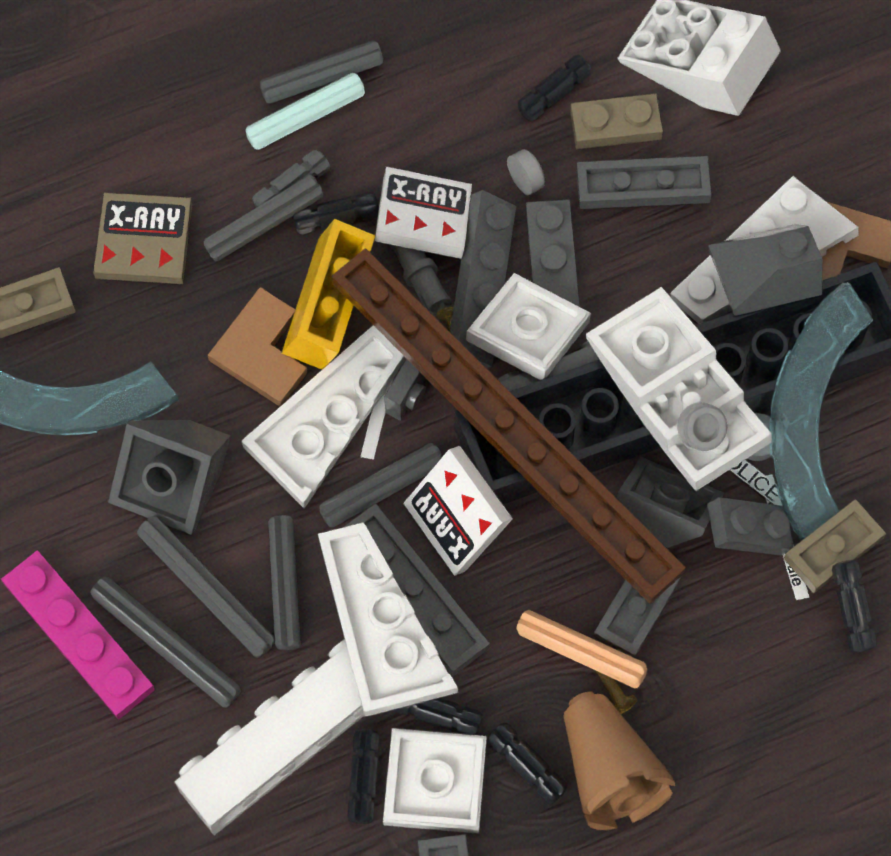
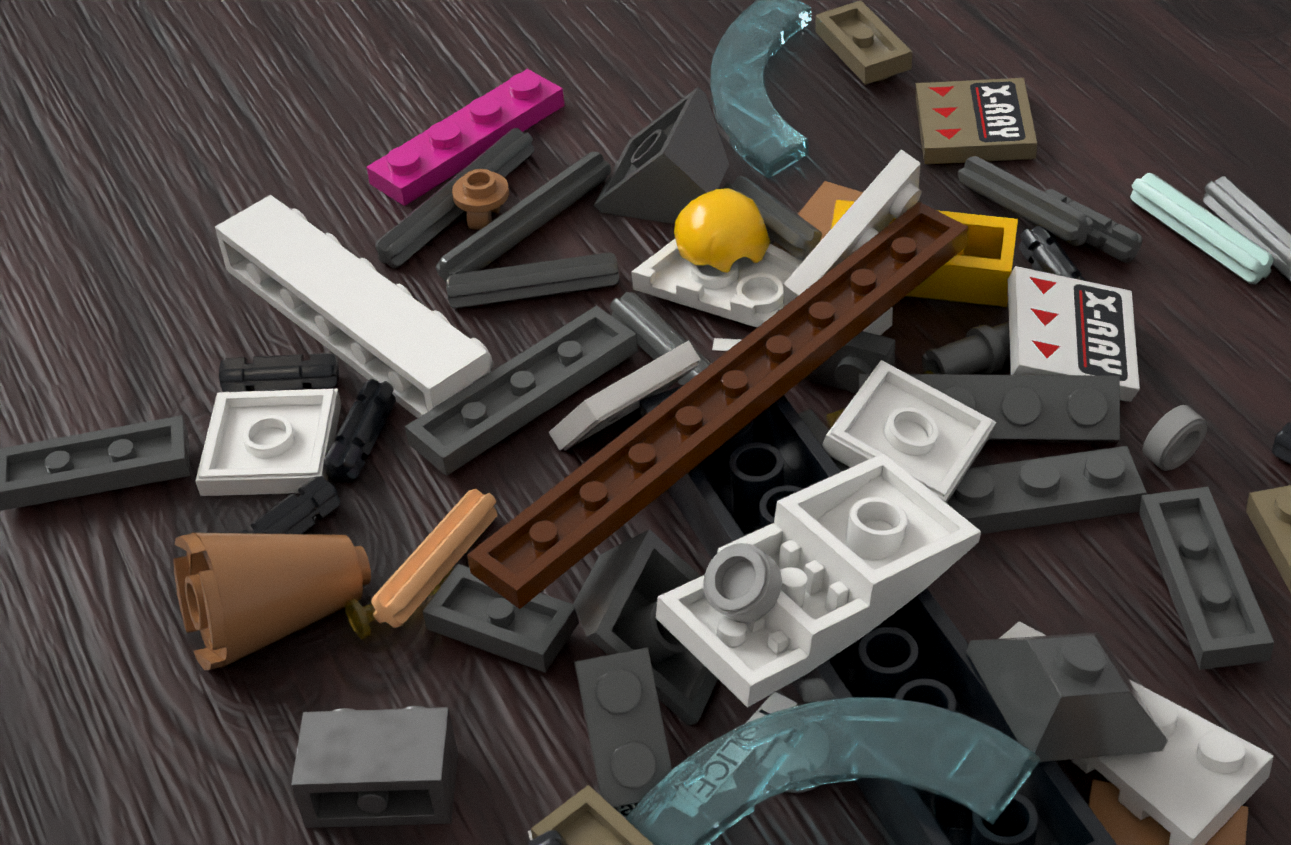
camera: 90 degrees right, 25 degrees down
(182, 615) = (480, 194): none -> medium nougat plate
(258, 394) = (781, 222): none -> dark grey axle
(284, 430) = (721, 229): none -> yellow hair
(349, 328) = (886, 197): none -> white plate
(383, 637) = (439, 322): white wing -> none
(758, 684) = (375, 767): none -> flat silver brick

